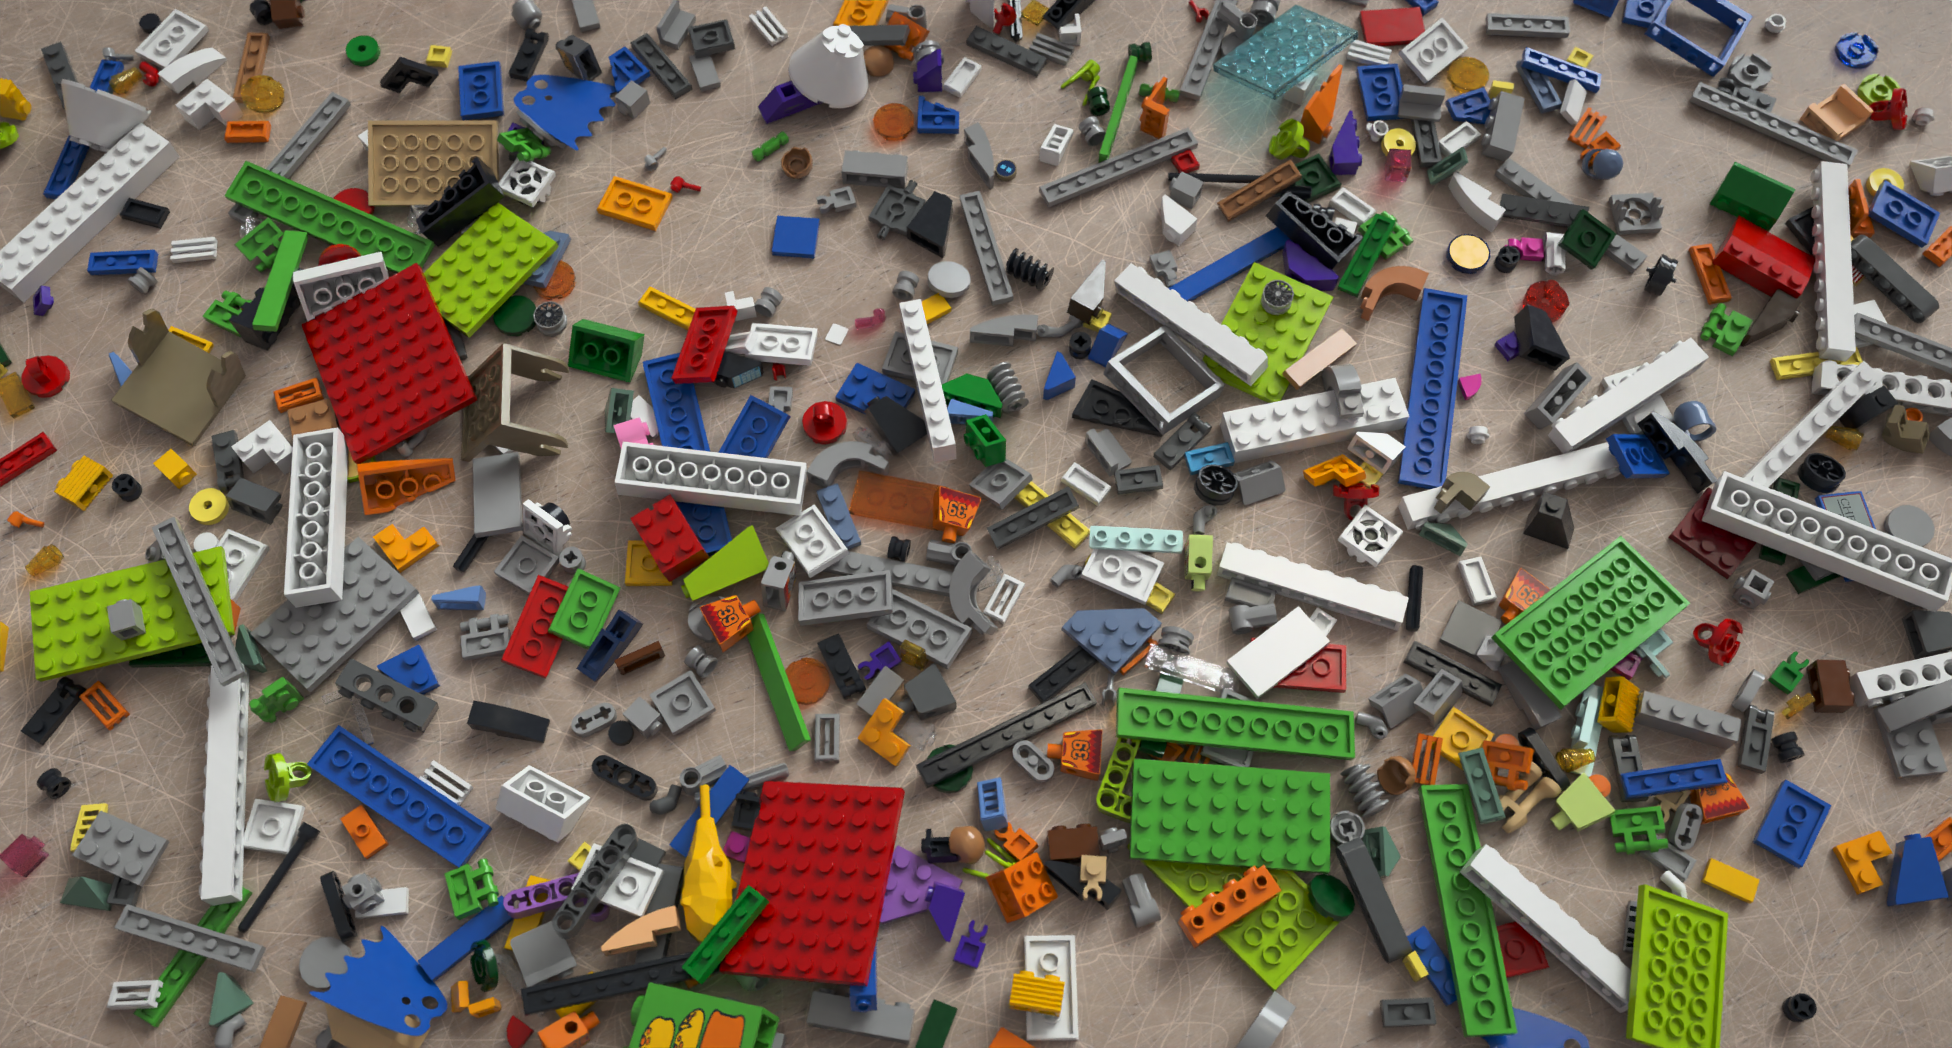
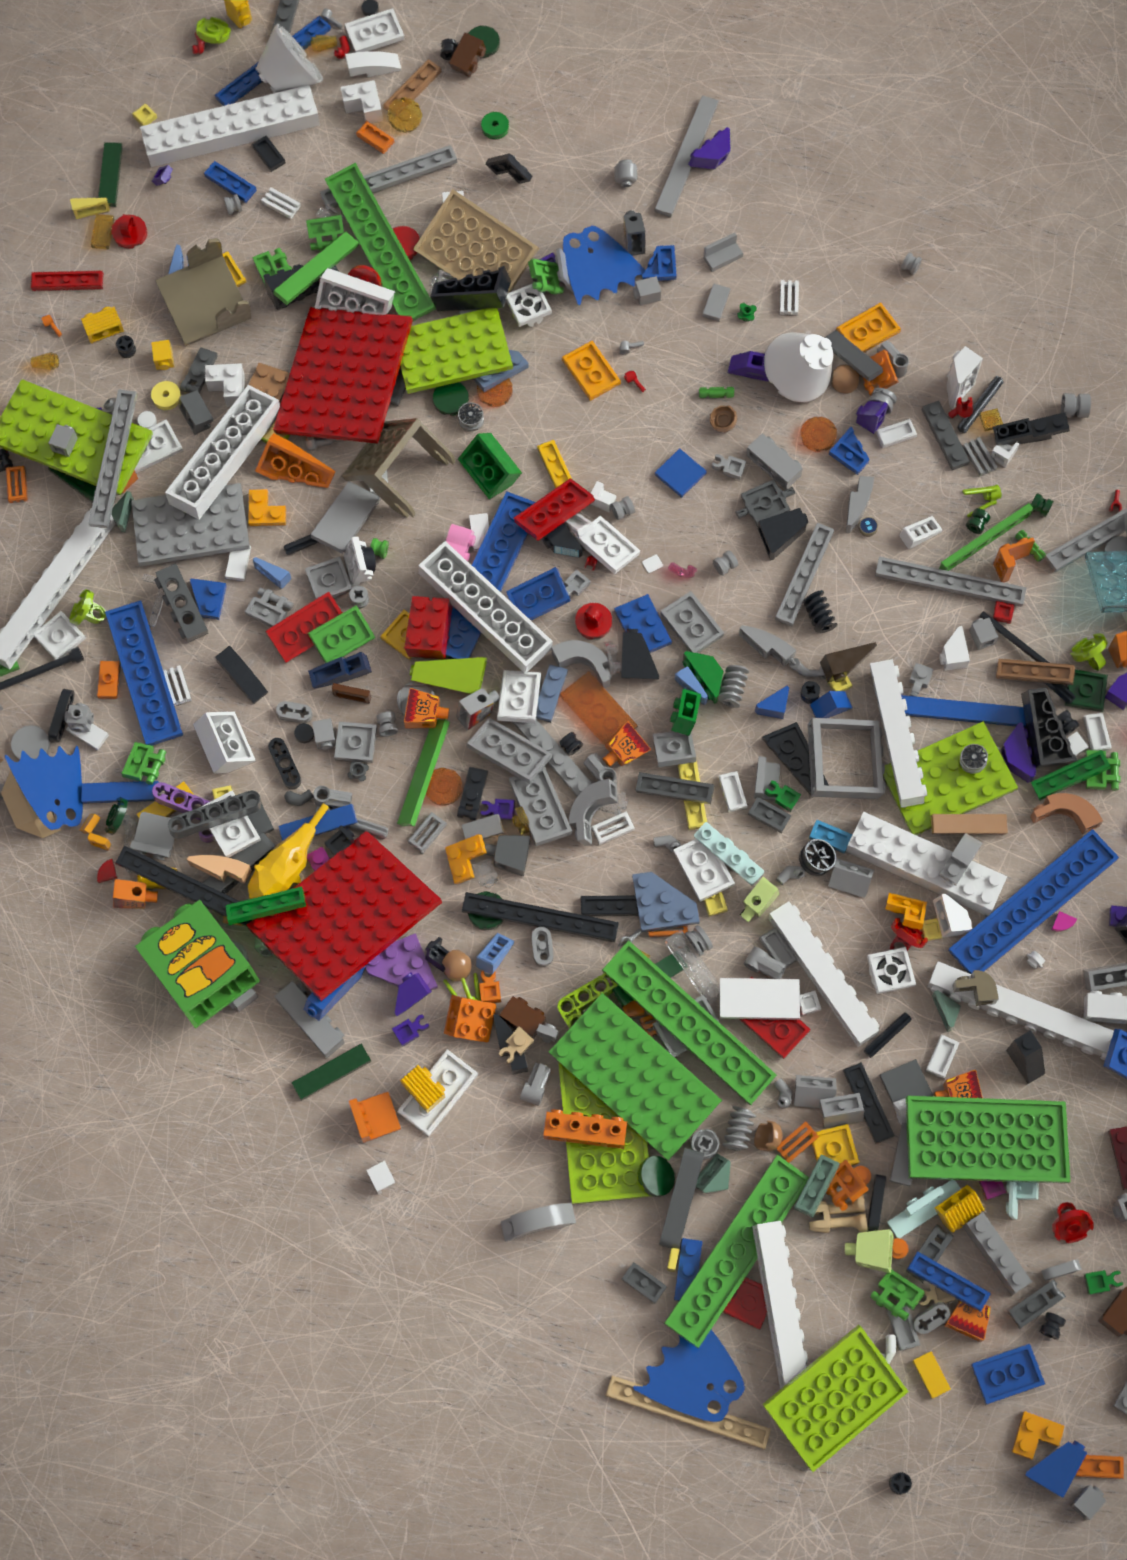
camera: 40 degrees right, 5 degrees up
(277, 696) = (116, 554): bright green plate -> none
(298, 398) = (273, 359): orange tile -> none
(439, 56) = (543, 164): light yellow tile -> none
(481, 90) = (551, 212): blue plate -> none
(528, 55) = (604, 206): black plate -> none
(556, 497) = (380, 547): none -> bright green wheel
(618, 408) = (465, 513): sand green slope -> none
(661, 66) = (689, 277): dark grey tile -> none
(701, 726) = (358, 766): none -> dark grey plate
(711, 38) = (740, 280): dark grey tile -> none
(740, 62) = (746, 316): none -> green plate
(927, 381) = (679, 642): white brick -> none
(935, 307) = (726, 591): yellow tile -> none
(948, 279) = (759, 579): tile -> none
(1079, 753) = (575, 964): torso -> none
(1093, 133) = (954, 540): light grey wheel -> none
(1138, 452) = (785, 797): none -> green plate
(1182, 441) = (823, 811): dark grey plate -> none
(1573, 759) = (896, 1218): clear yellow cone -> none
(1797, 704) = (1086, 1305): clear yellow plate -> none

